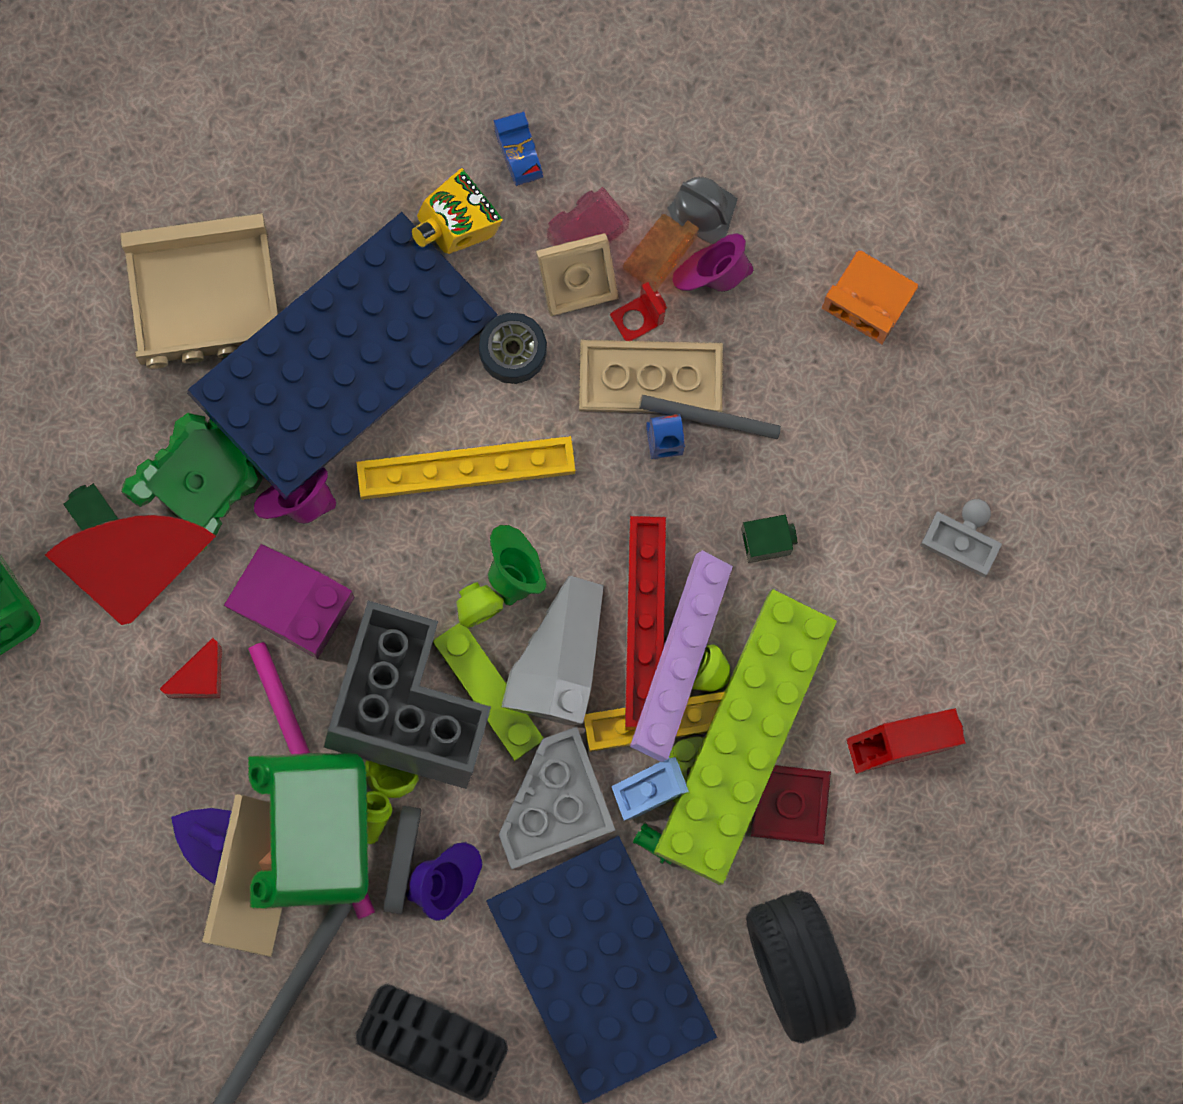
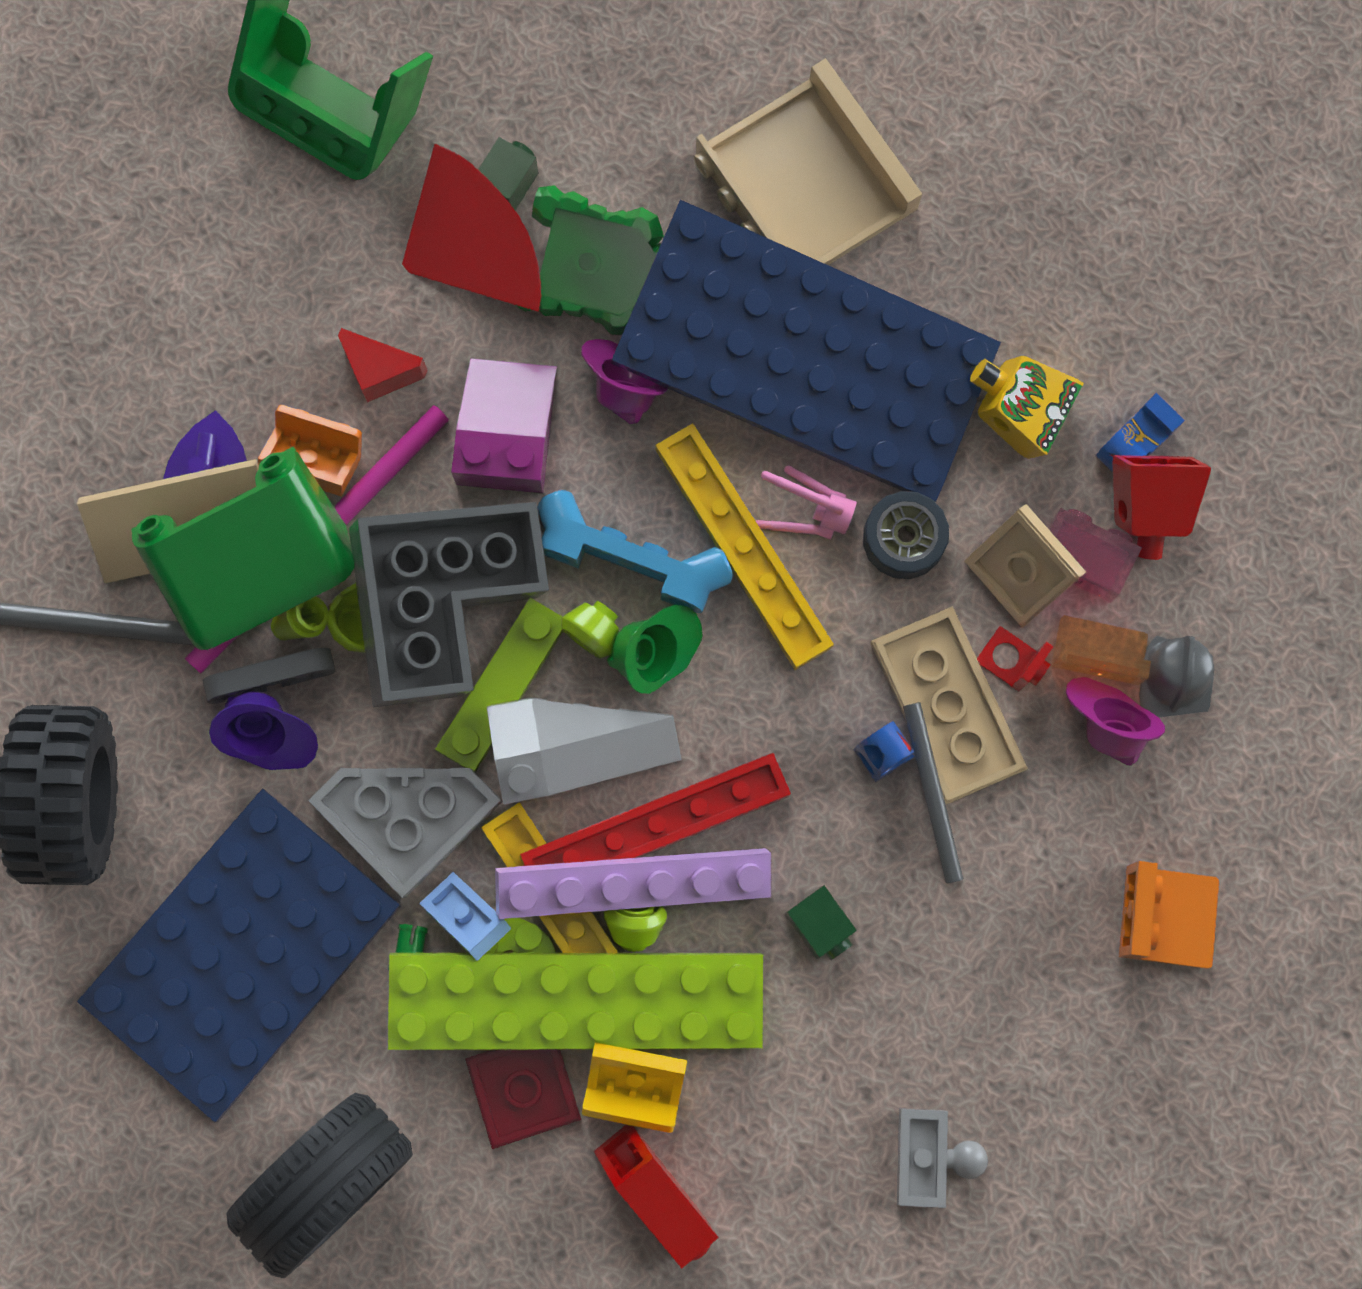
camera: 70 degrees right, 0 degrees up
(228, 756) = (325, 446): none -> orange bracket
(466, 391) = (832, 507): none -> bright pink plant
(474, 522) = (685, 581): none -> dark azure plate
(571, 157) = (1157, 498): none -> red torso
(825, 722) = (634, 1087): none -> yellow bracket

